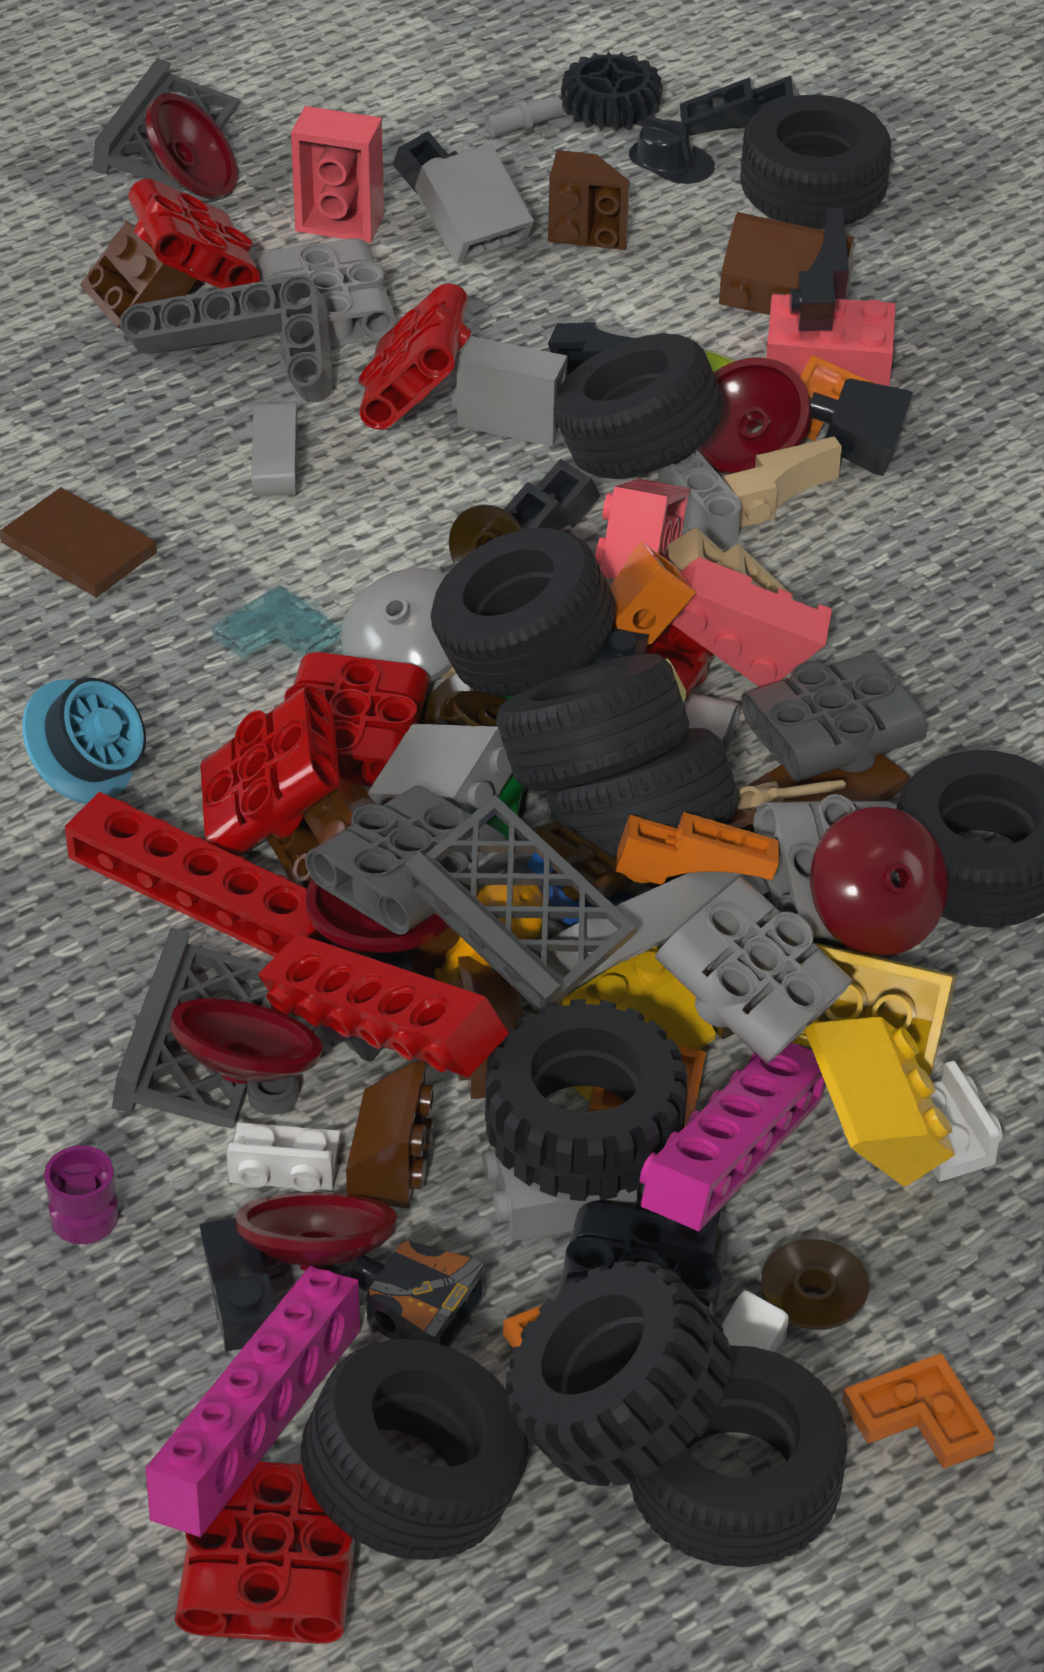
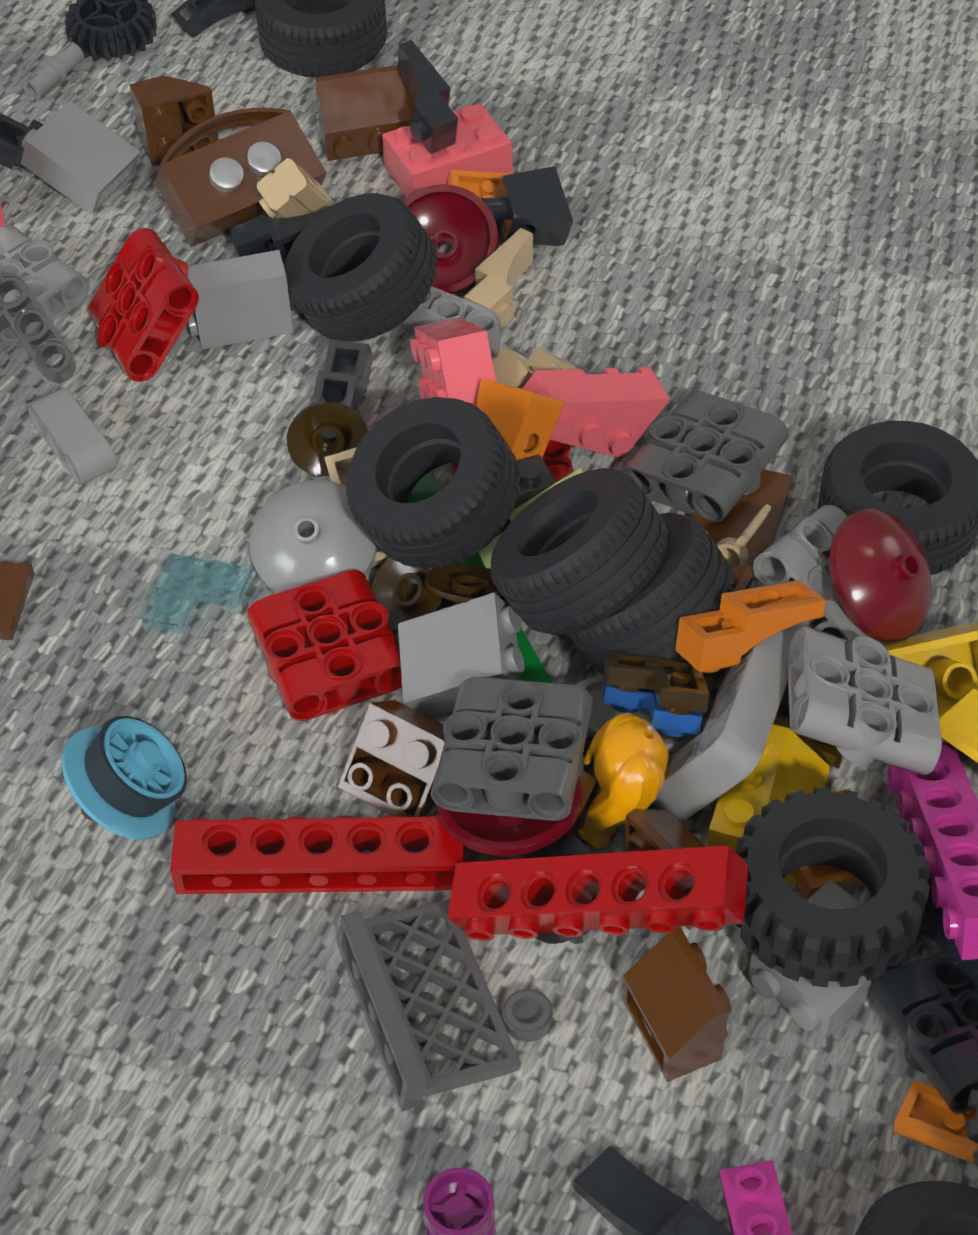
camera: 30 degrees left, 5 degrees up
(244, 1040) = (492, 985): dark red dish -> none
(270, 772) = (318, 728): red connector -> none
(283, 1157) = (589, 1073): white bracket -> none
(316, 1227) = (685, 1125): dark red dish -> none
(421, 1292) = (811, 1139): torso -> none
(480, 923) = (658, 784): dark grey fence -> none
(603, 277) = (218, 182): none -> reddish brown piece
(632, 309) = (291, 192): none -> tan brick
(669, 152) = (192, 55): black piece -> none

